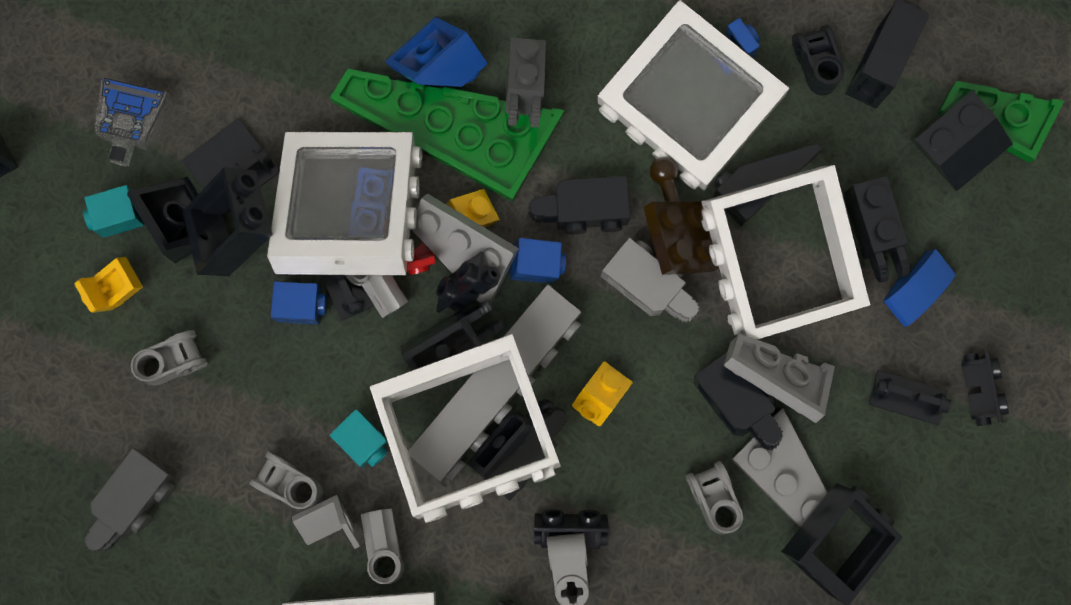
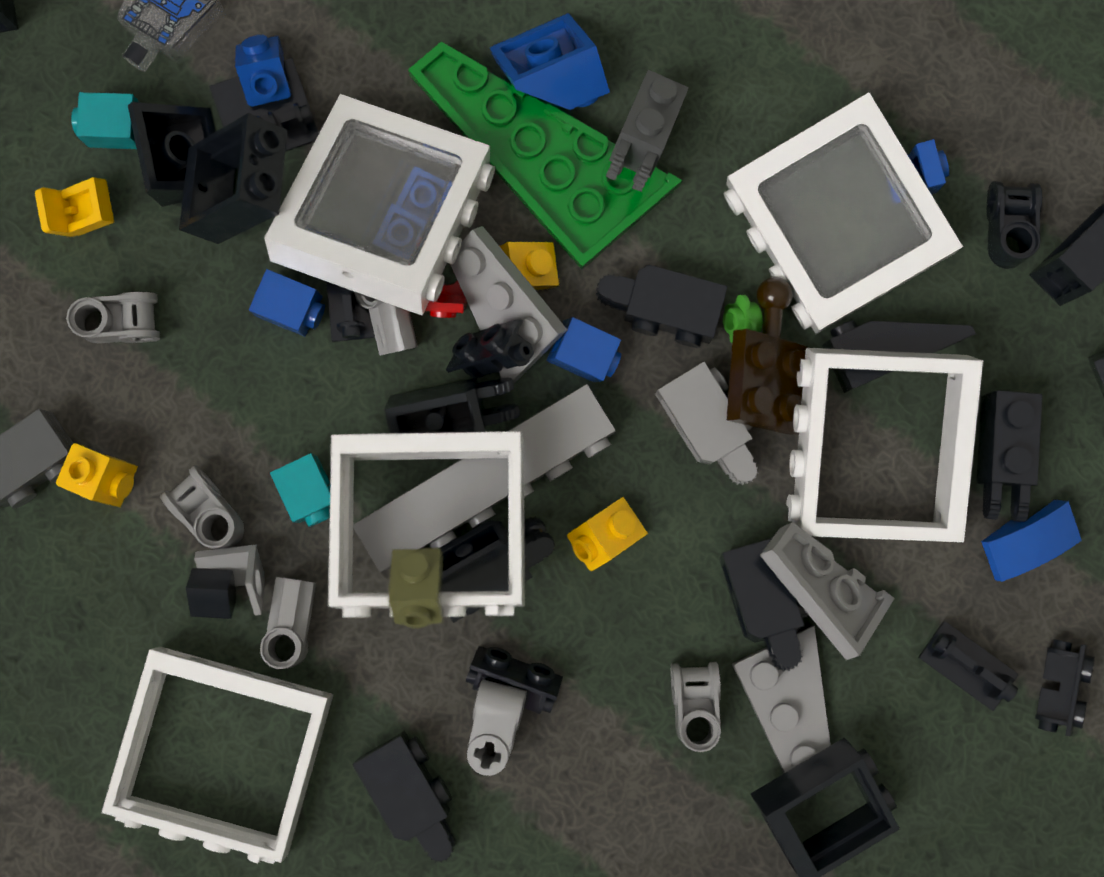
camera: 20 degrees right, 5 degrees up
(194, 484) = (96, 476): none -> yellow bracket
(218, 134) = (261, 70): none -> blue bracket
(314, 545) = (211, 593): none -> black piece
(475, 477) = (416, 587): none -> olive bracket
(645, 194) = (742, 315): none -> bright green plate

